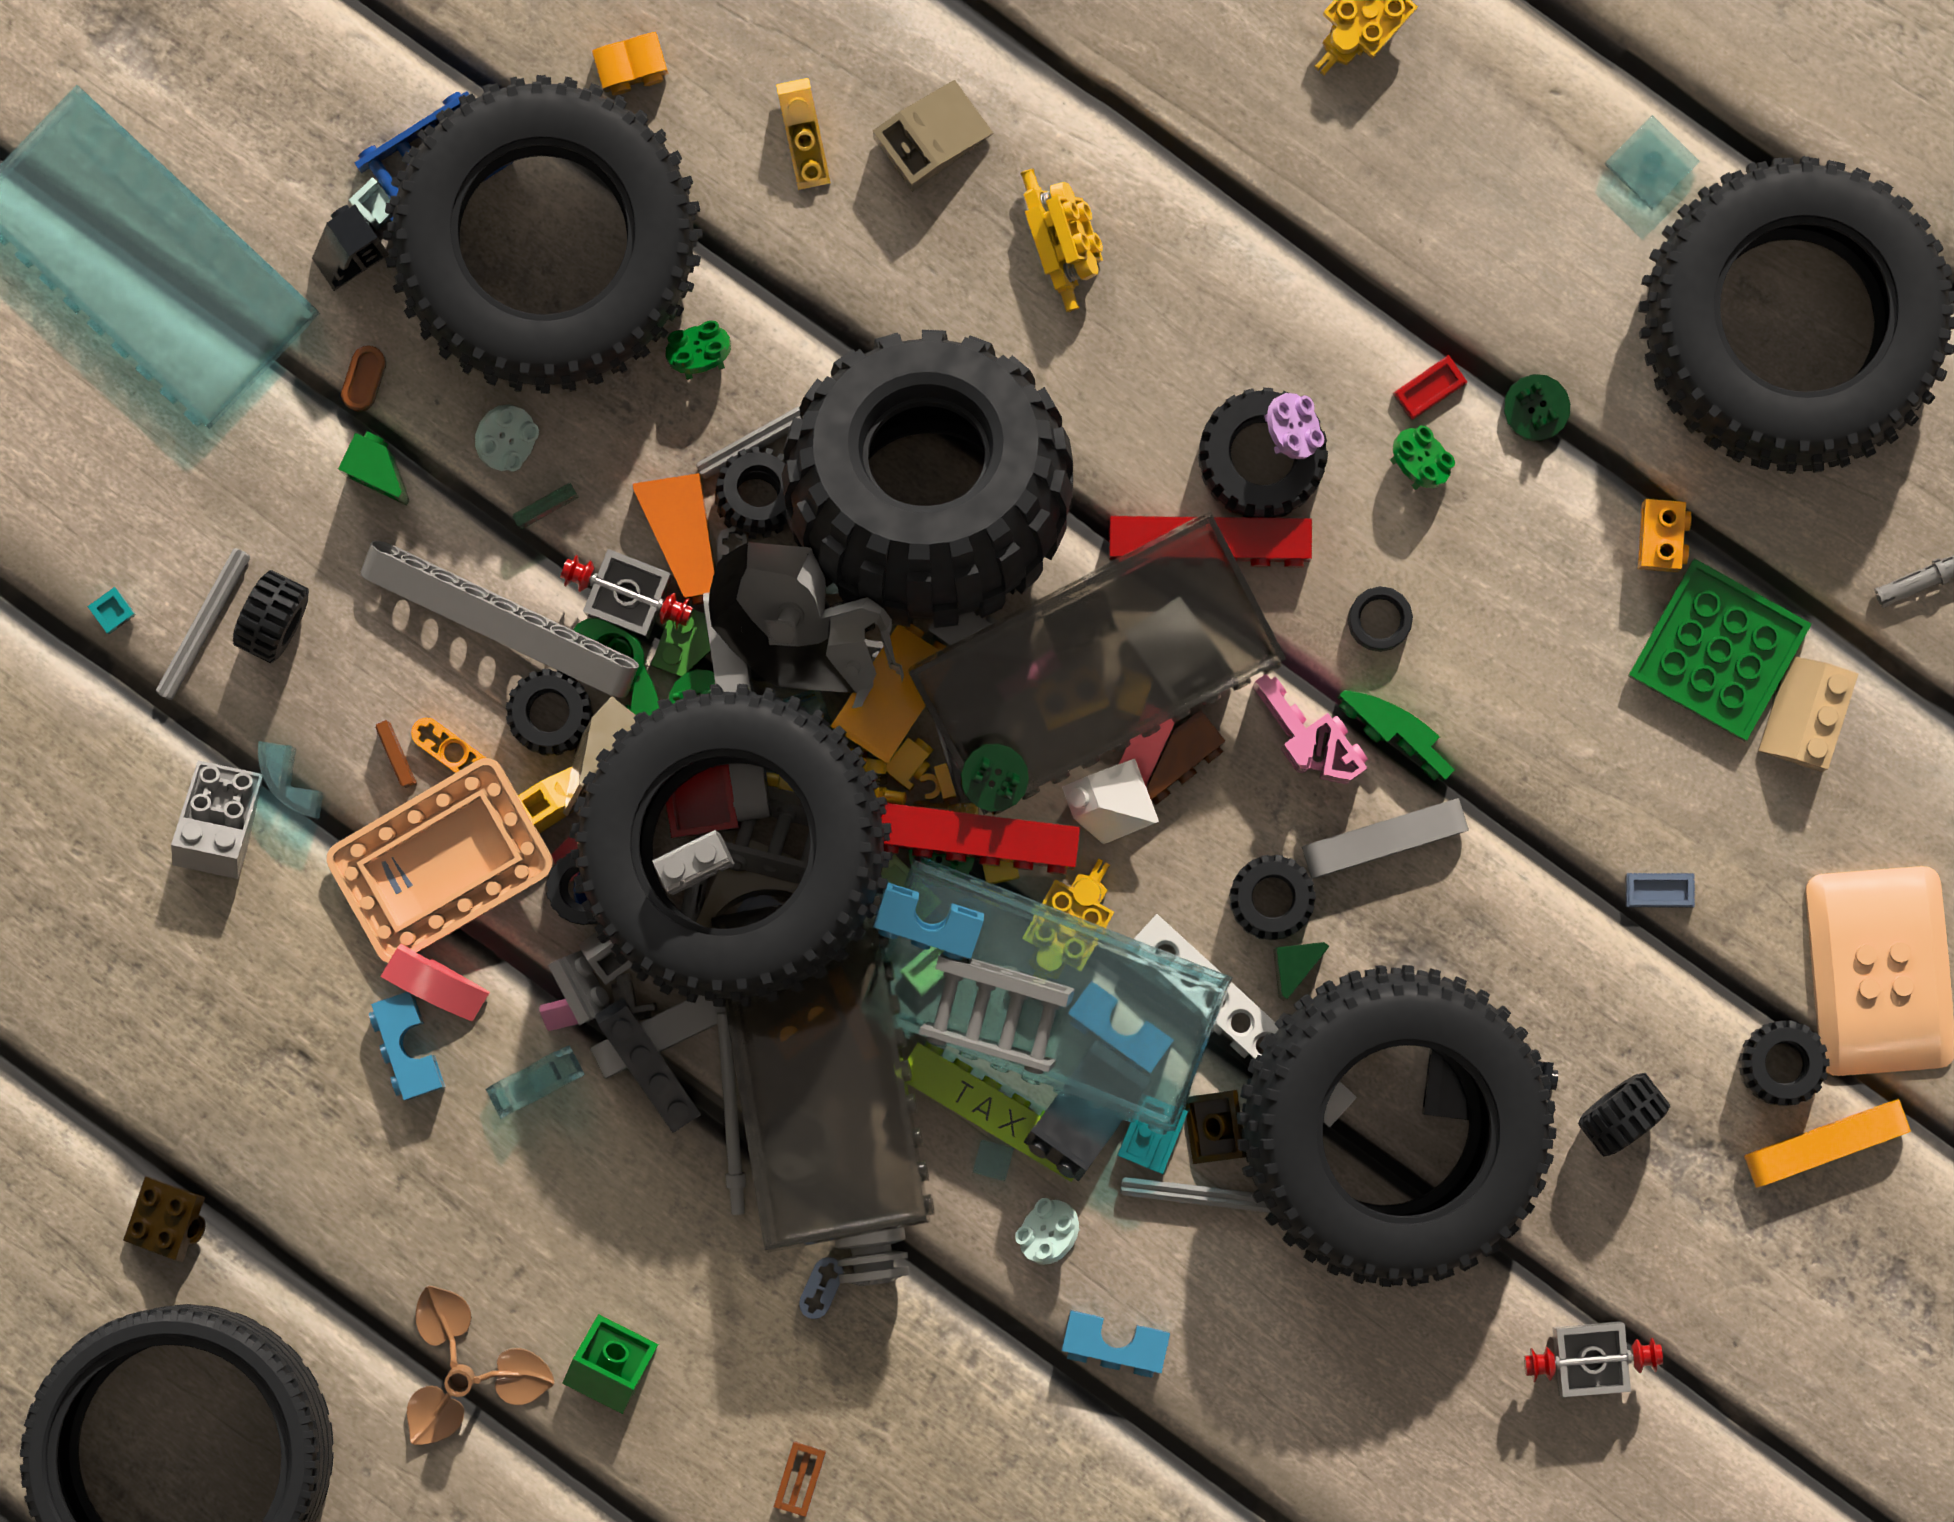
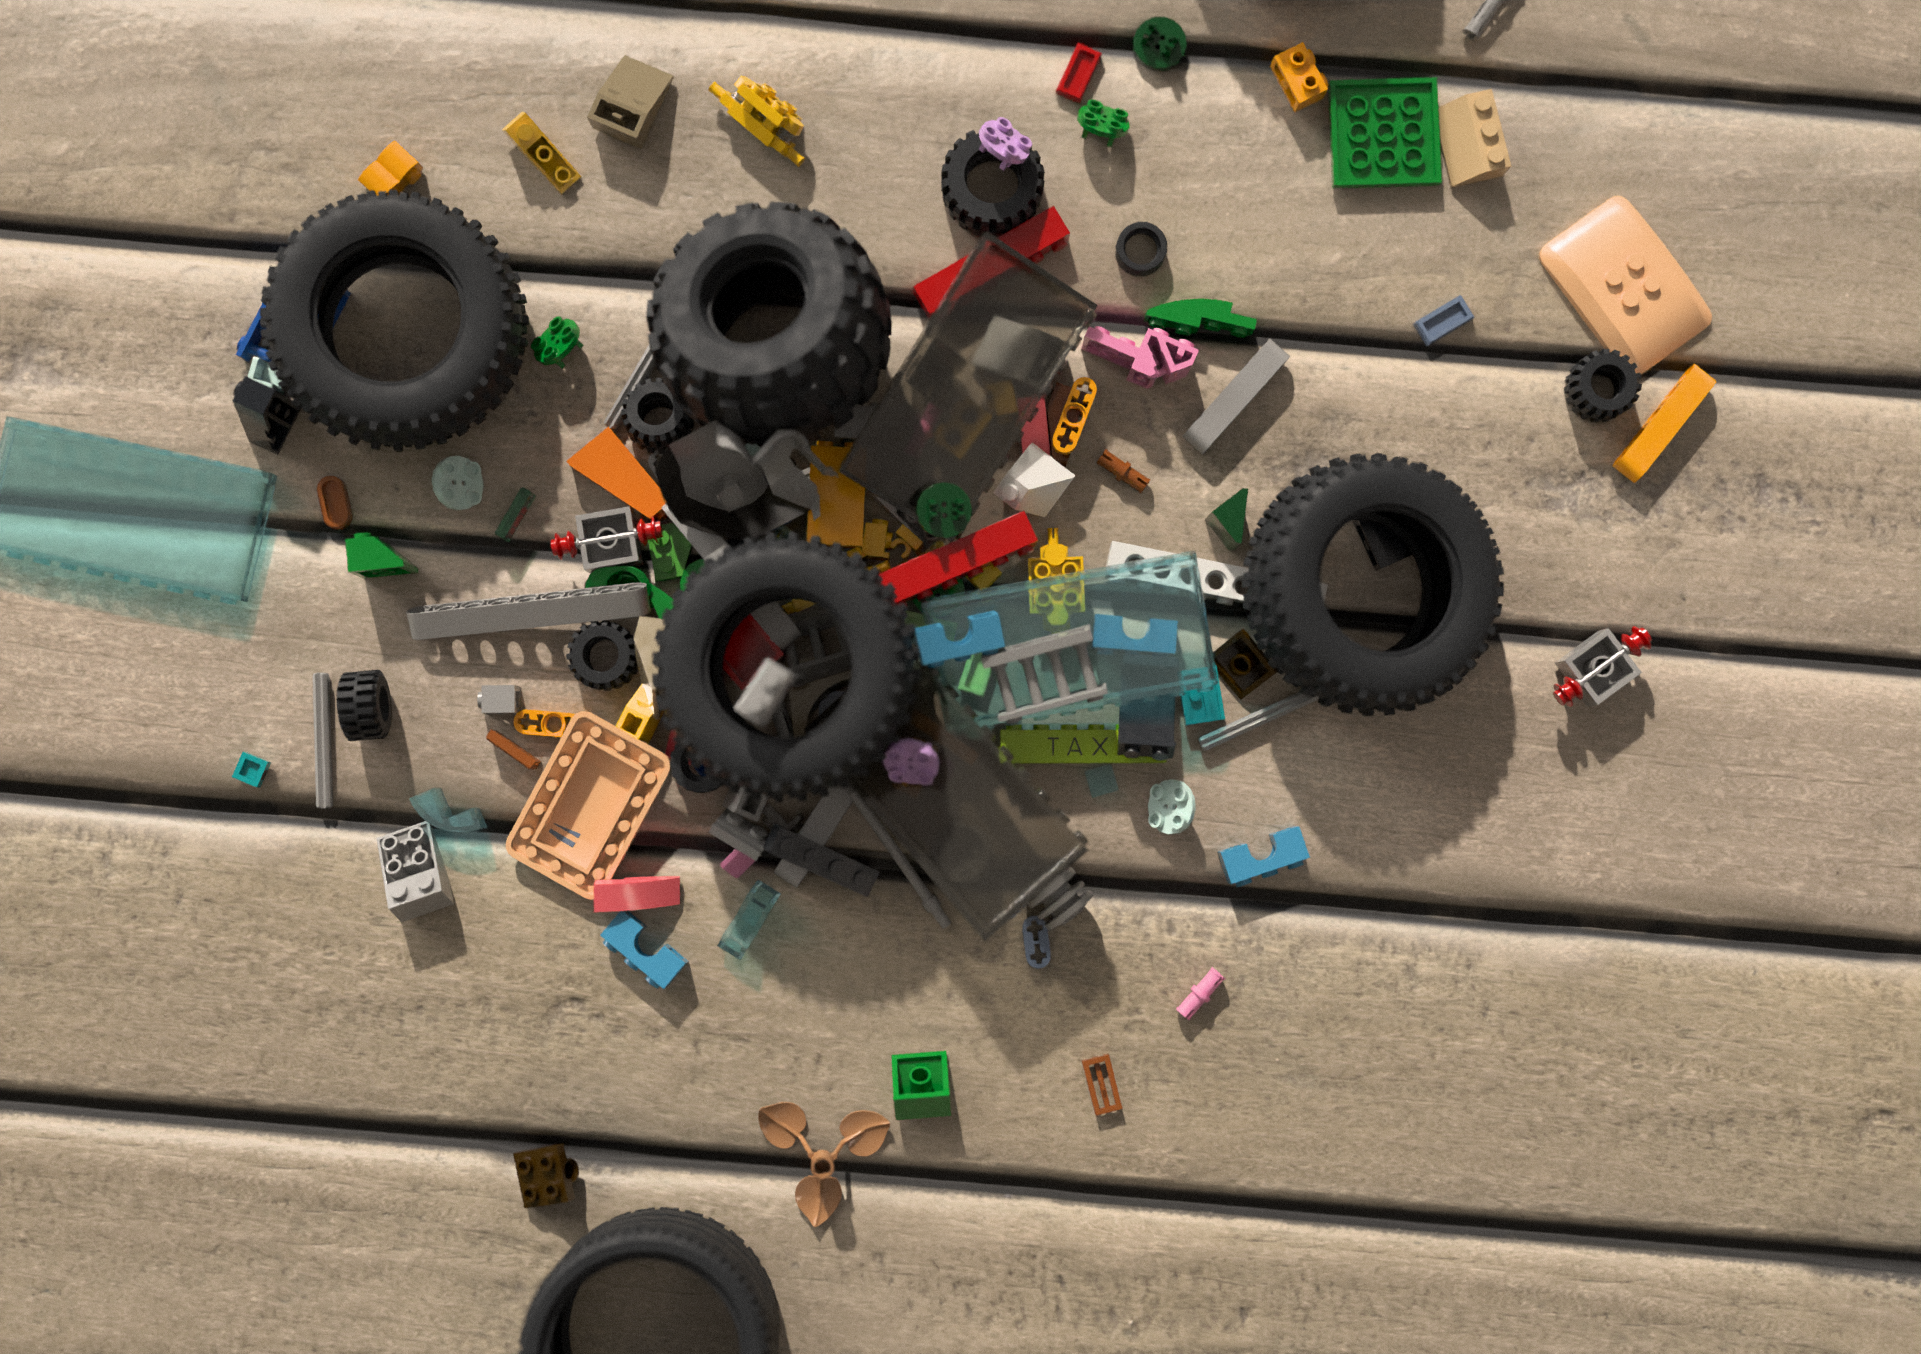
camera: 40 degrees left, 0 degrees up
(412, 692) = (499, 699): none -> light grey brick
(801, 1020) = (911, 762): none -> lavender plate
(961, 1447) = (1200, 993): none -> bright pink pin
(1216, 845) = (1123, 471): none -> dark orange pin
(1221, 748) = (1074, 394): none -> light orange beam
(1302, 897) = (1190, 460): black tyre -> none
(1624, 1114) = (1518, 485): black tyre -> none

